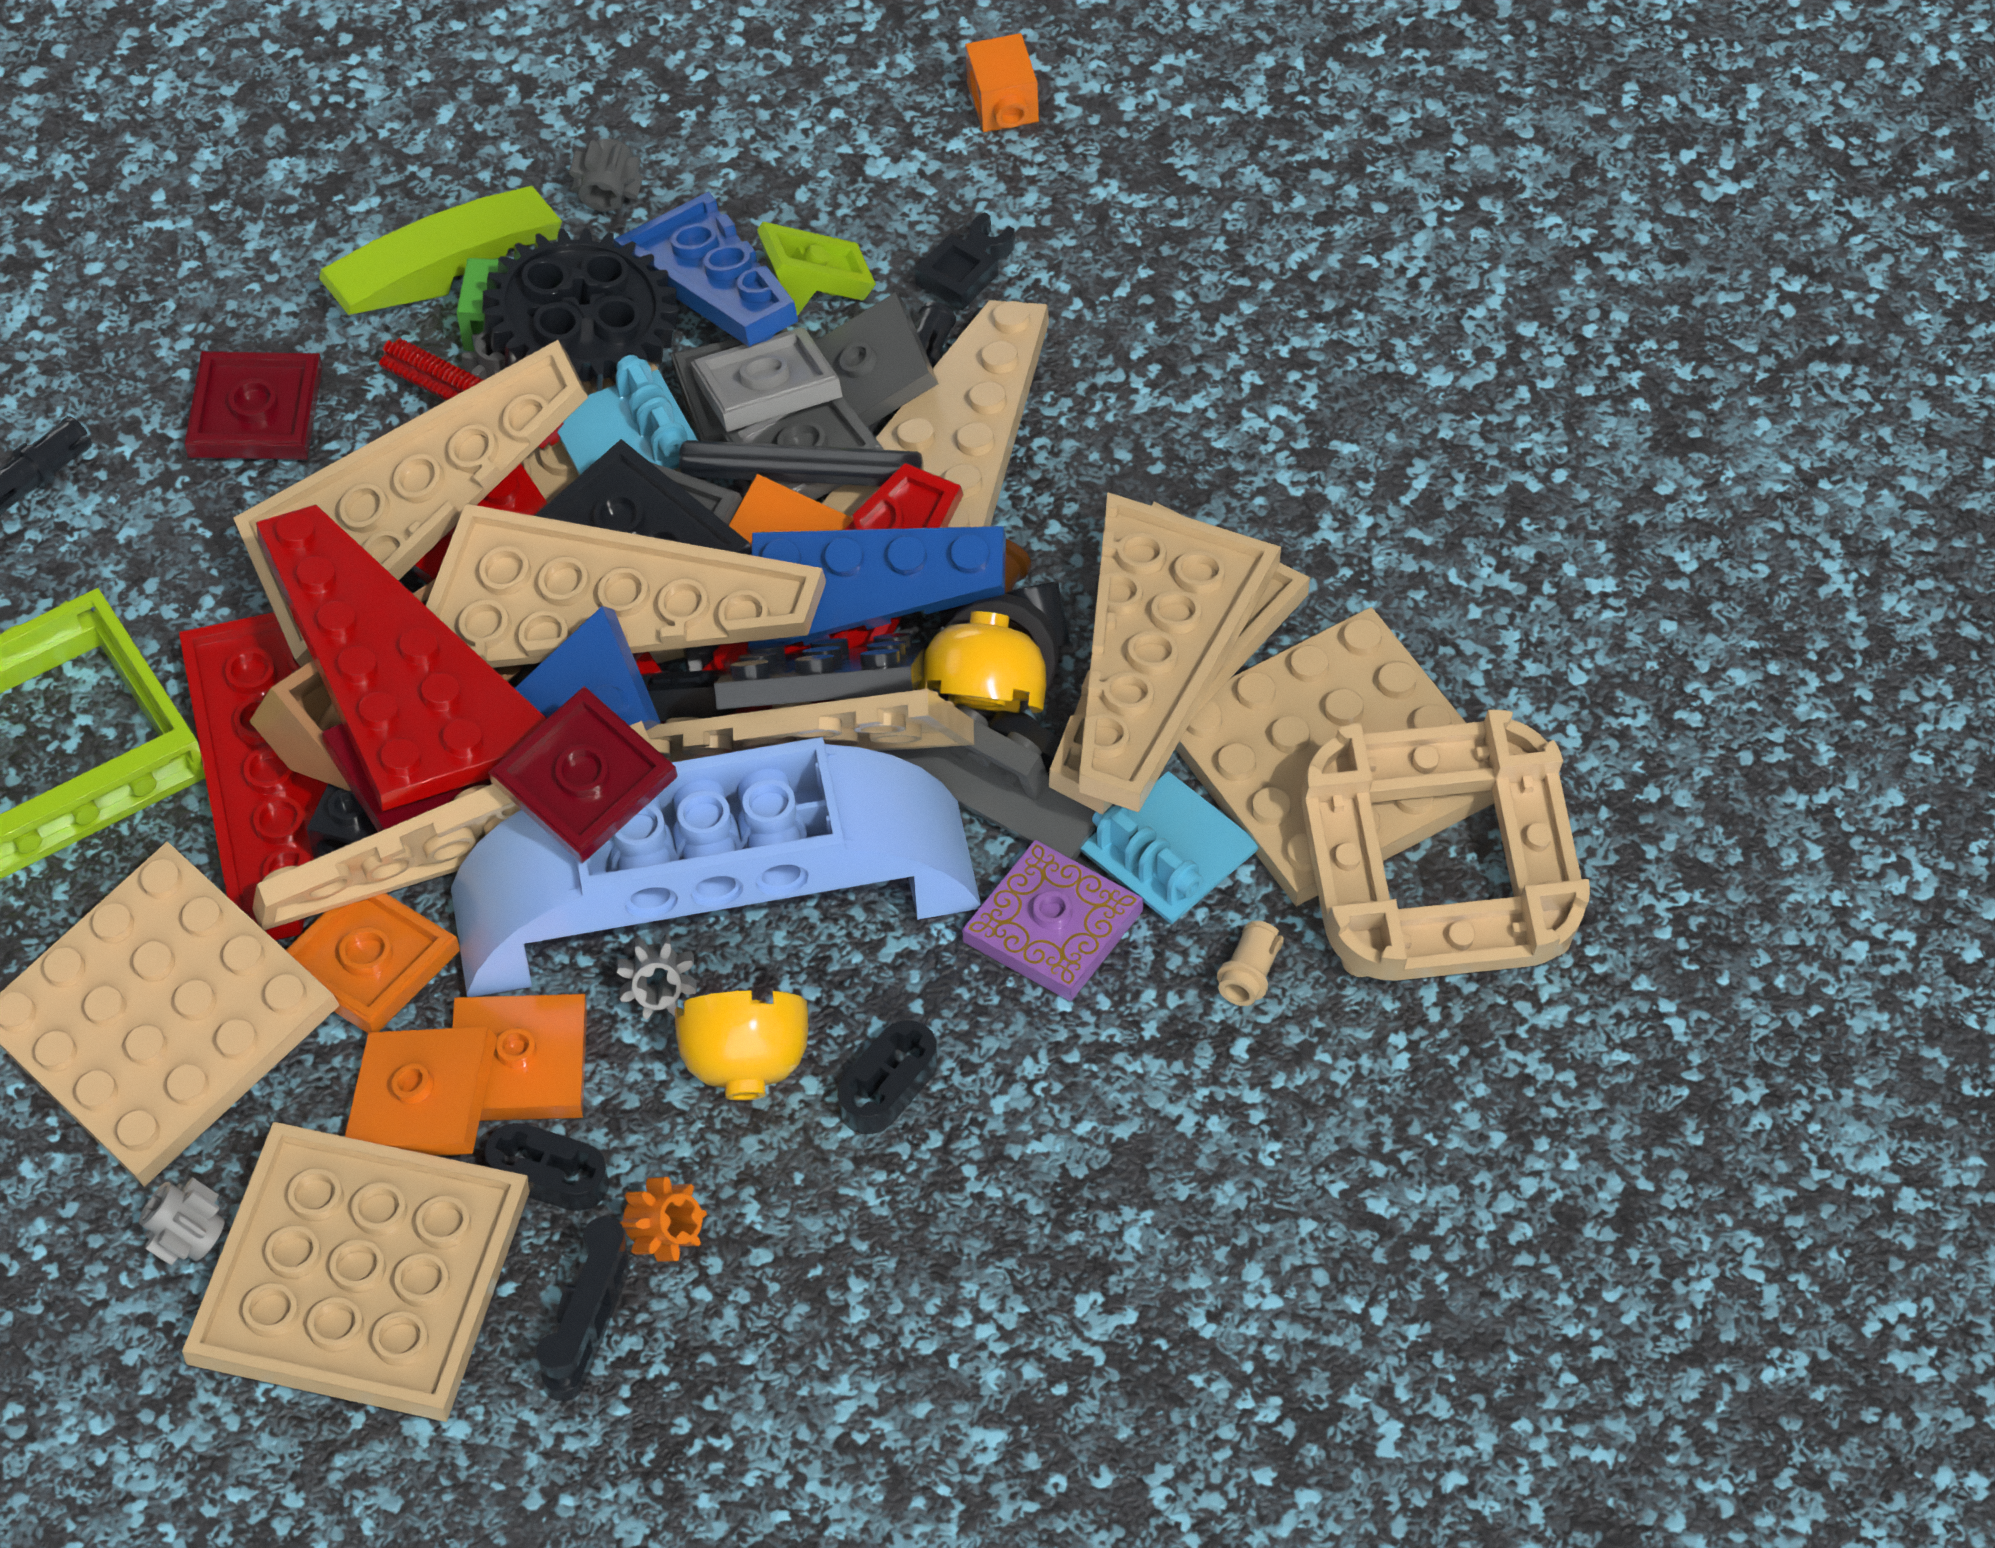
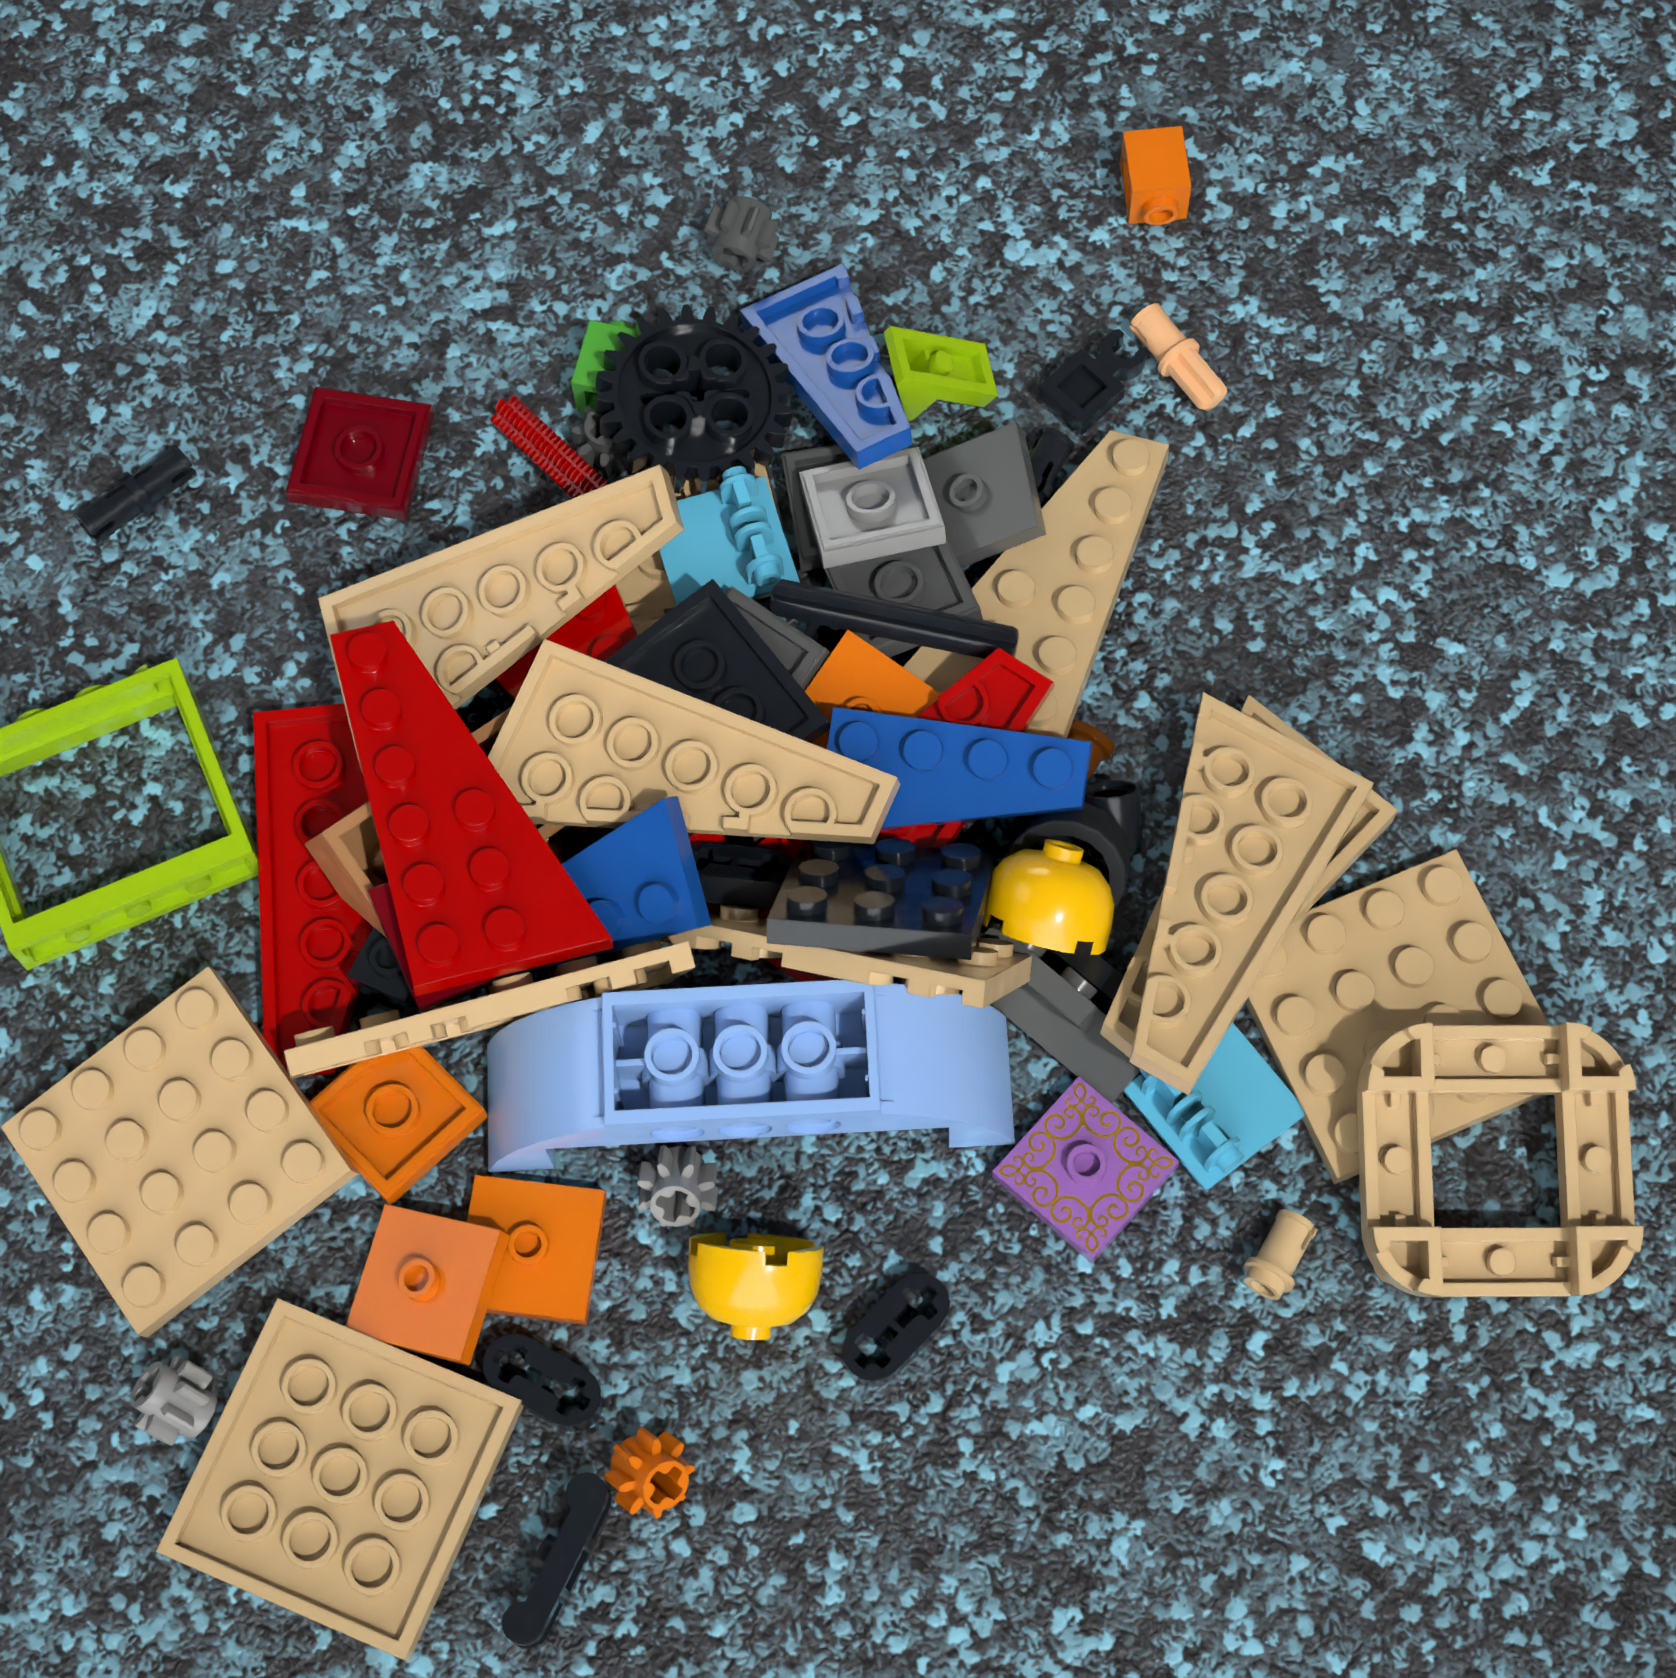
camera: 10 degrees right, 15 degrees up
(430, 252) = (556, 301): lime slope -> none
(583, 774) = (620, 999): dark red plate -> none
(1045, 232) = (1178, 357): none -> light nougat axle

